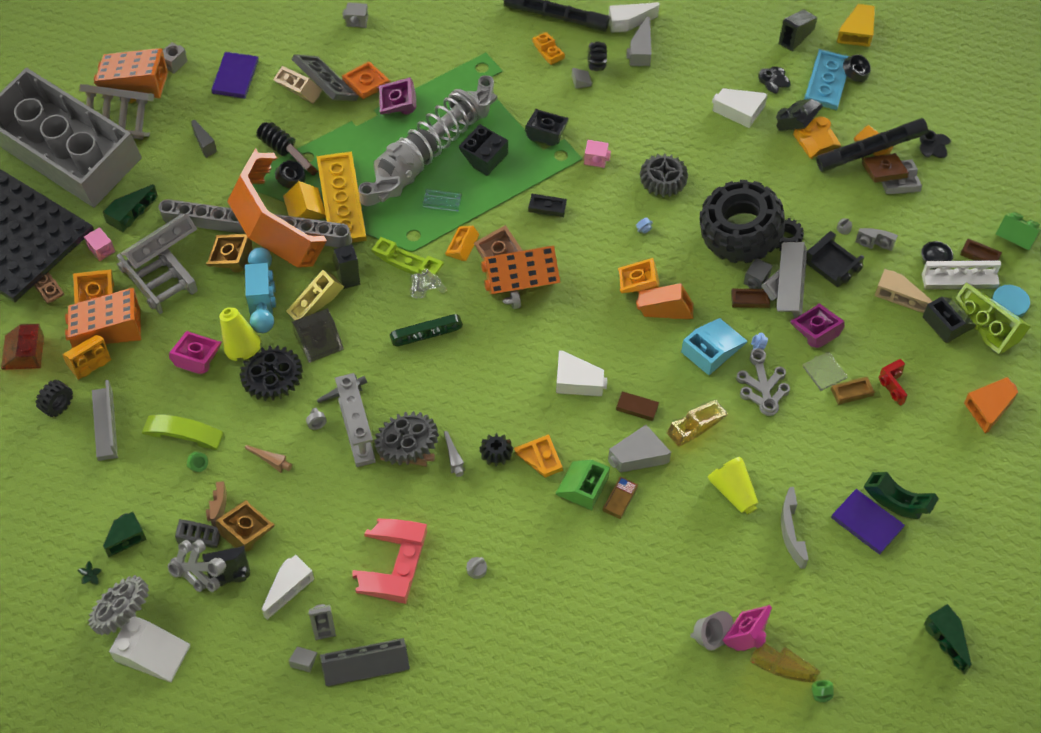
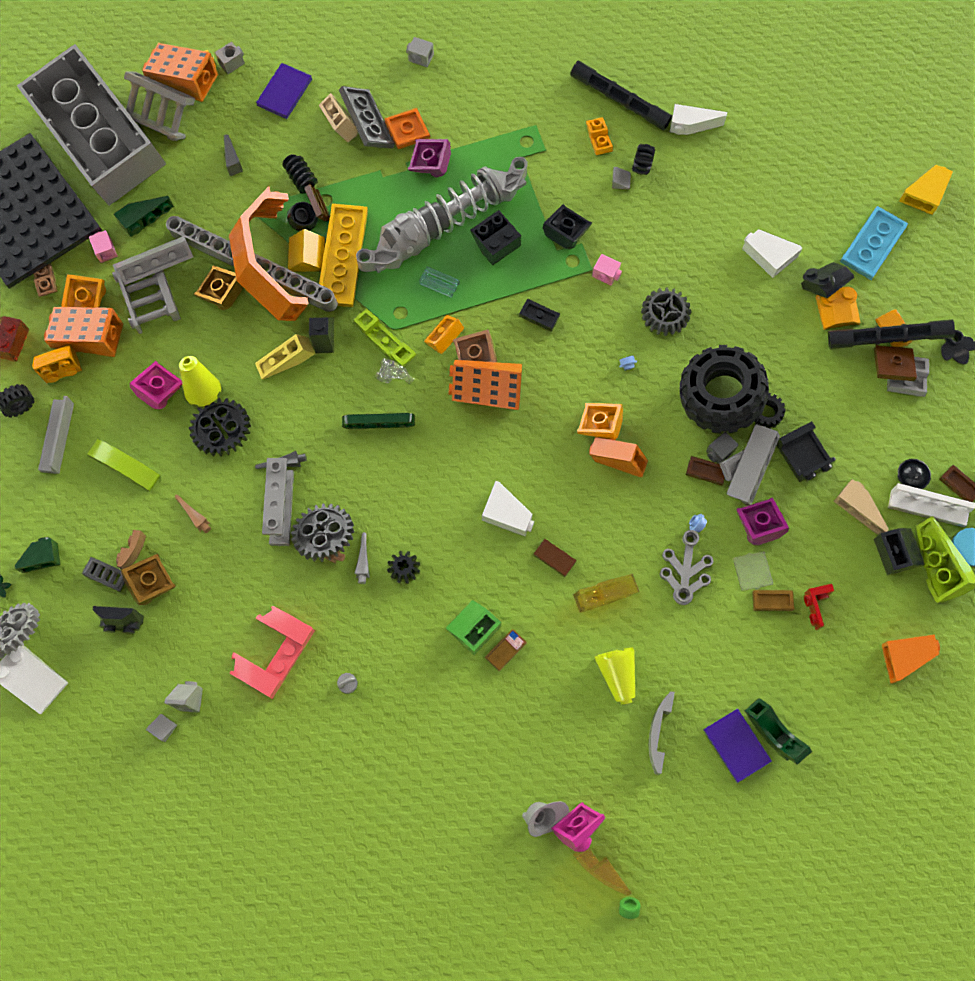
camera: 20 degrees right, 15 degrees up
(179, 568) = (93, 622): light grey plant -> none
(197, 461) = (125, 501): bright green tile -> none
(260, 290) = (233, 337): medium azure brick -> none
(290, 580) = (169, 649): white slope -> none
(316, 419) = (246, 487): light grey tile -> none
(317, 335) = (274, 399): clear smoke slope -> none
(364, 662) = (215, 747): dark grey panel -> none
(514, 299) = (473, 413): light grey tile -> none
(540, 455) = (444, 585): light orange wing -> none
(639, 451) = (538, 608): light grey slope -> none
(640, 46) = (692, 156): light grey slope -> none
(712, 345) = (650, 513): medium azure slope -> none
(773, 79) = (819, 229): black plate -> none
(796, 29) = (861, 177): black slope -> none
(846, 228) = (831, 419): light grey hinge -> none
(857, 68) = (908, 238): black hat -> none
(868, 237) = (850, 437): light grey slope -> none
(949, 632) = (774, 890): dark green slope -> none

